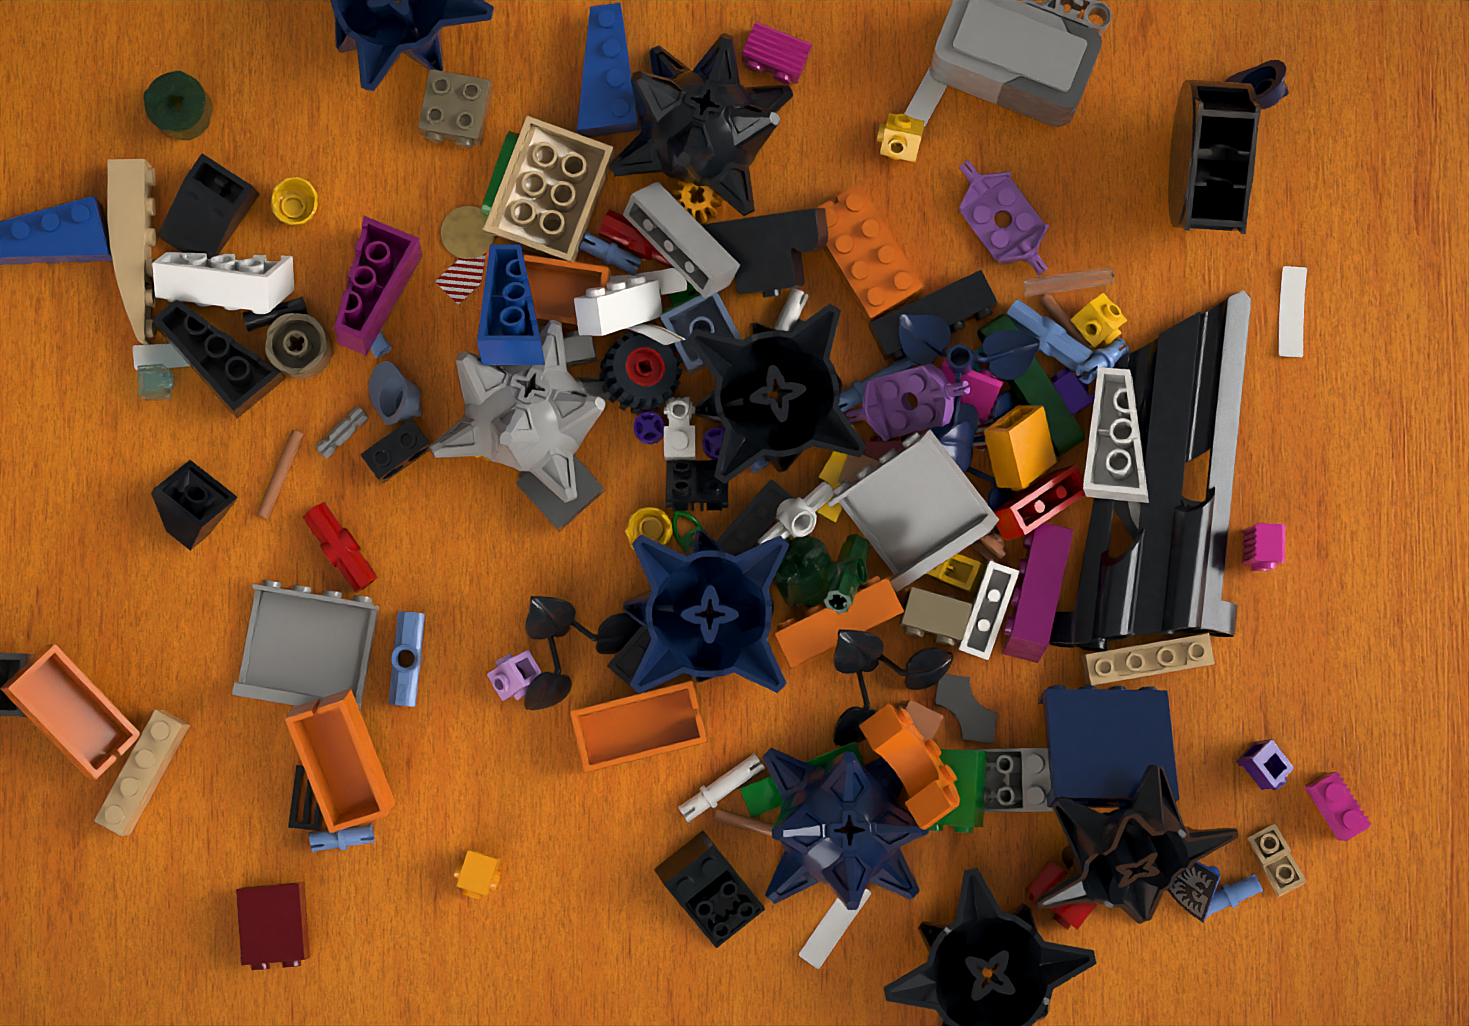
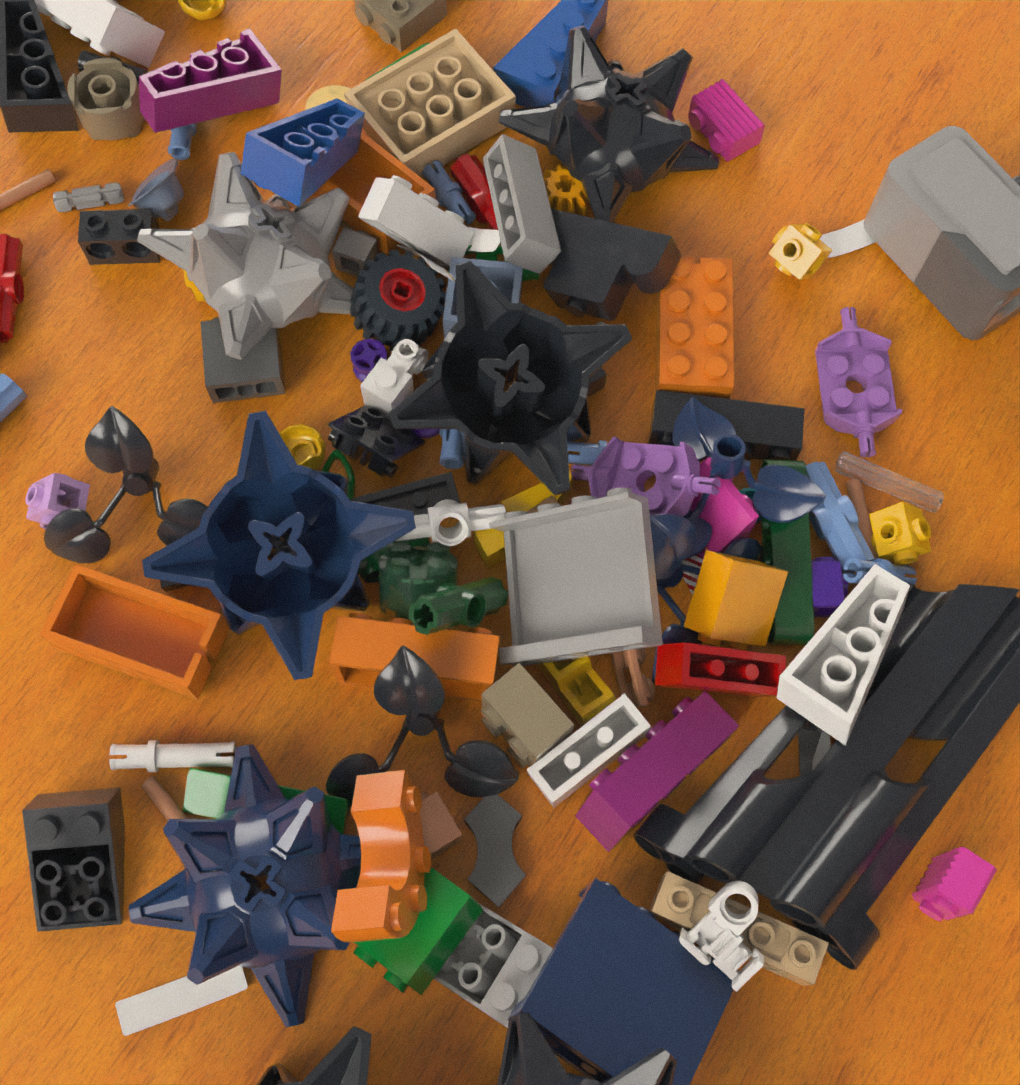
camera: 30 degrees right, 15 degrees down
(1143, 673) = (716, 936): none -> white piece

